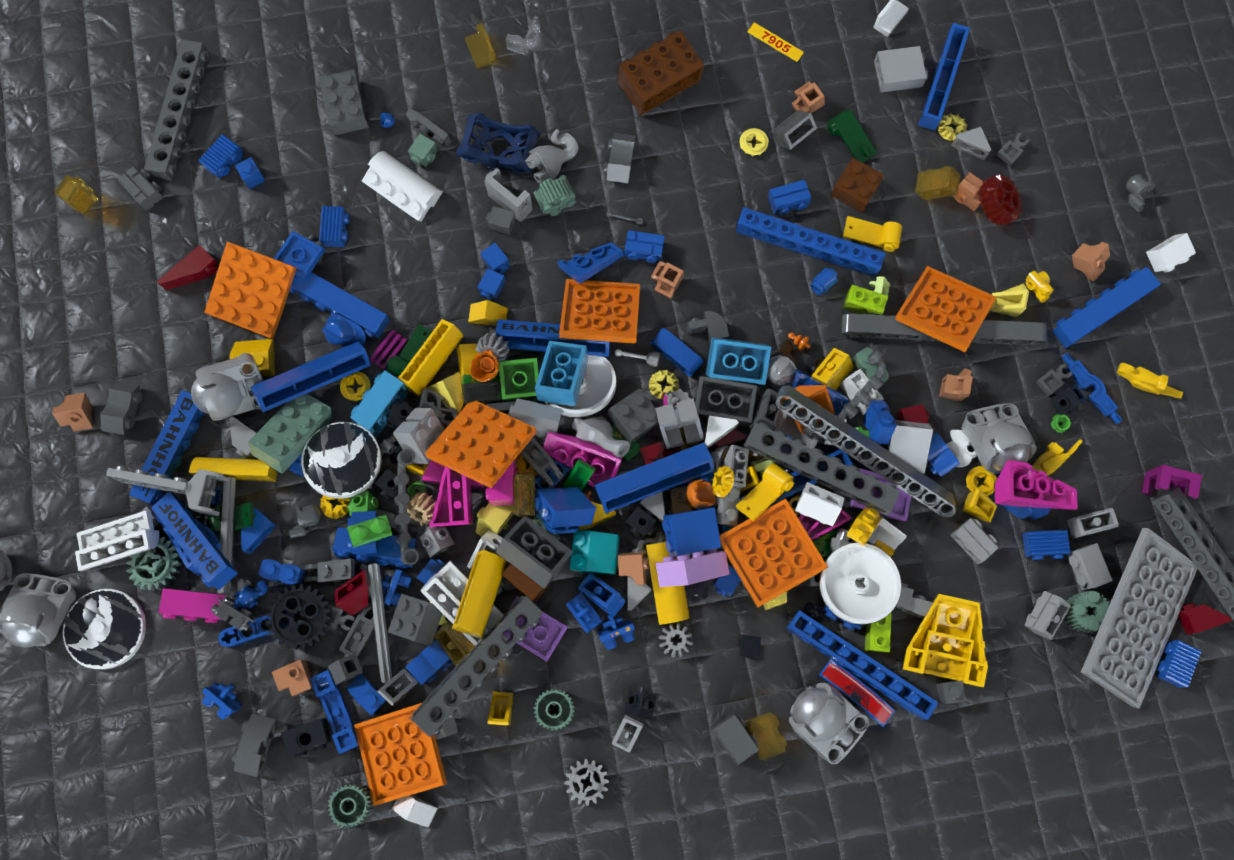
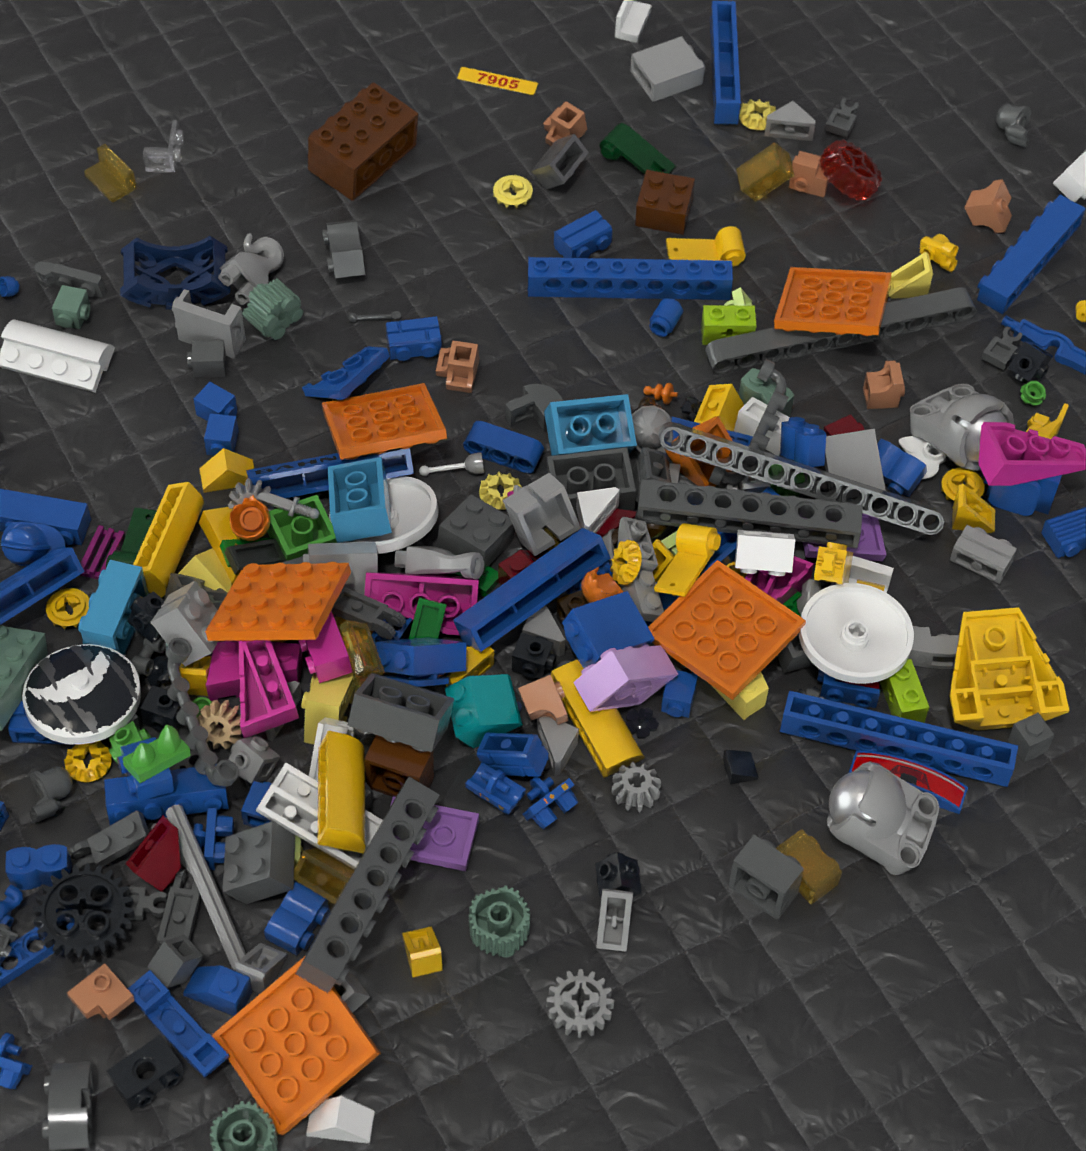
camera: 20 degrees left, 20 degrees down
(513, 362) = (288, 505): none -> light grey piece

